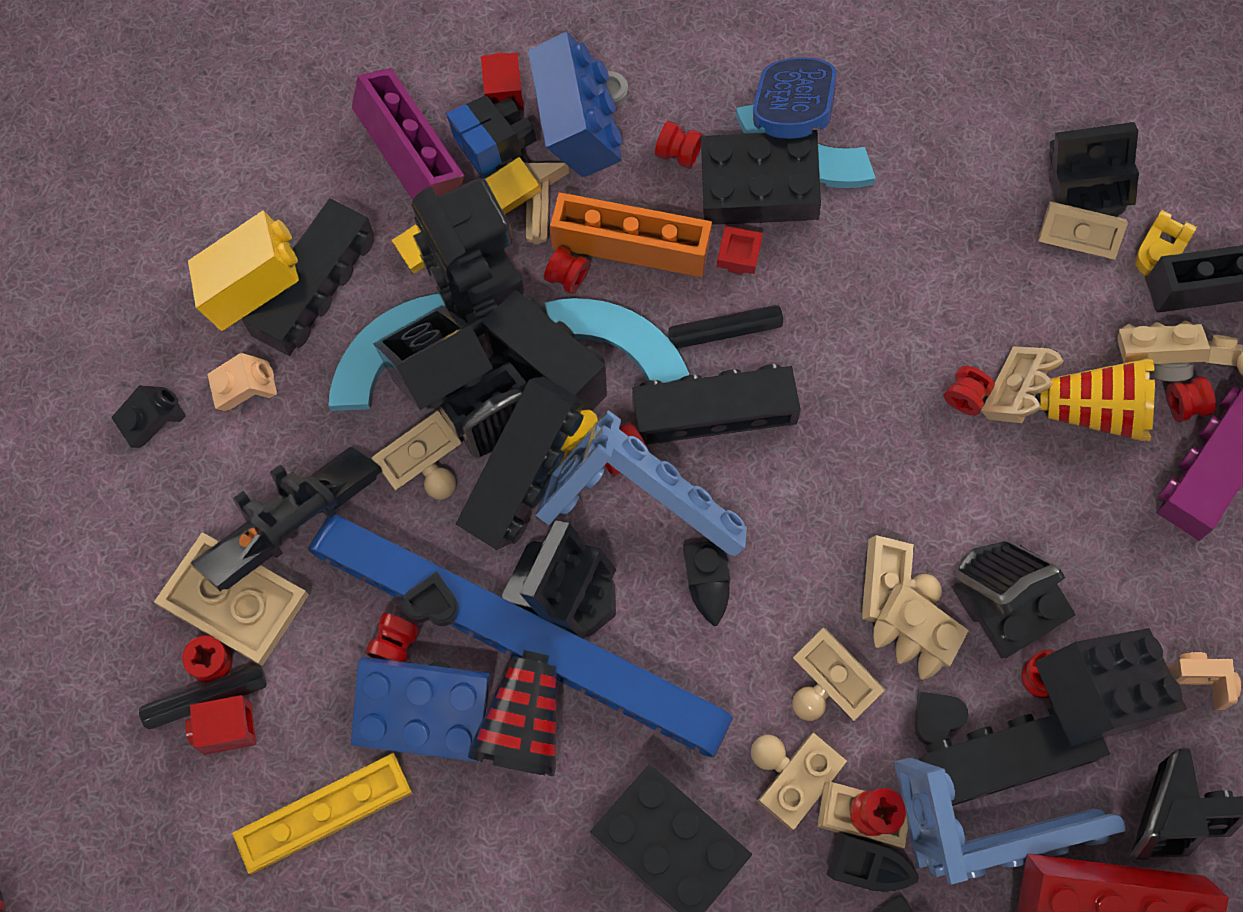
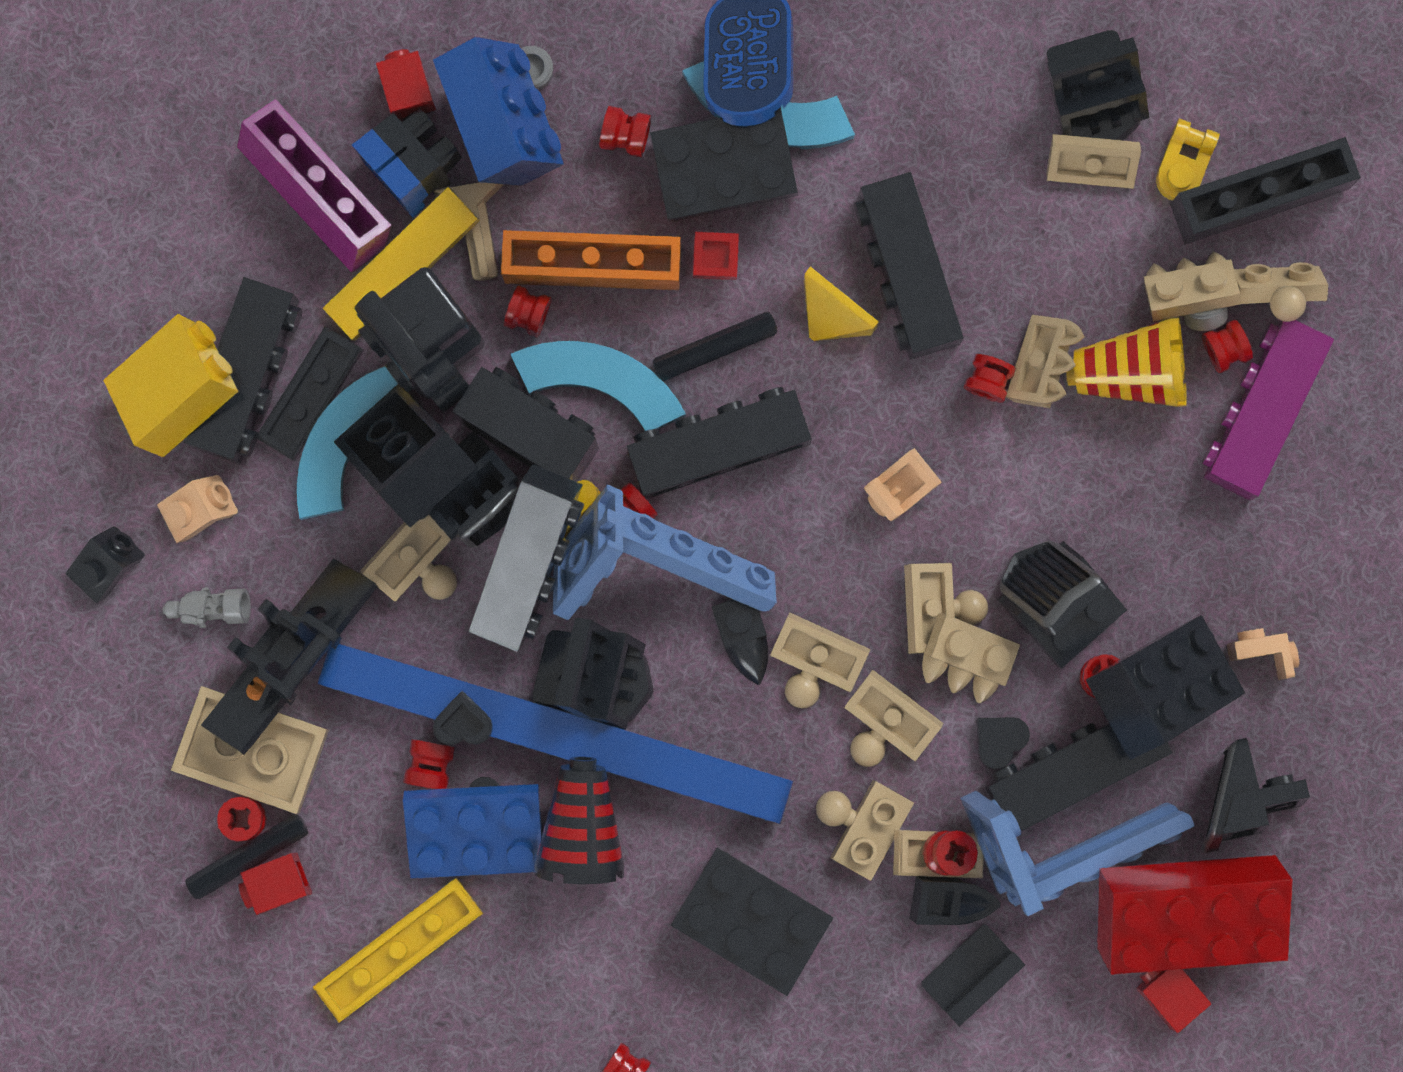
camera: 10 degrees left, 15 degrees up
(249, 469) = (199, 607): none -> light grey piece
(369, 300) = (309, 393): none -> black tile
(776, 606) = (818, 655): none -> tan plate
(836, 313) = (832, 312): none -> yellow slope
(876, 468) = (901, 485): none -> light nougat bracket
(909, 288) = (909, 266): none -> black brick

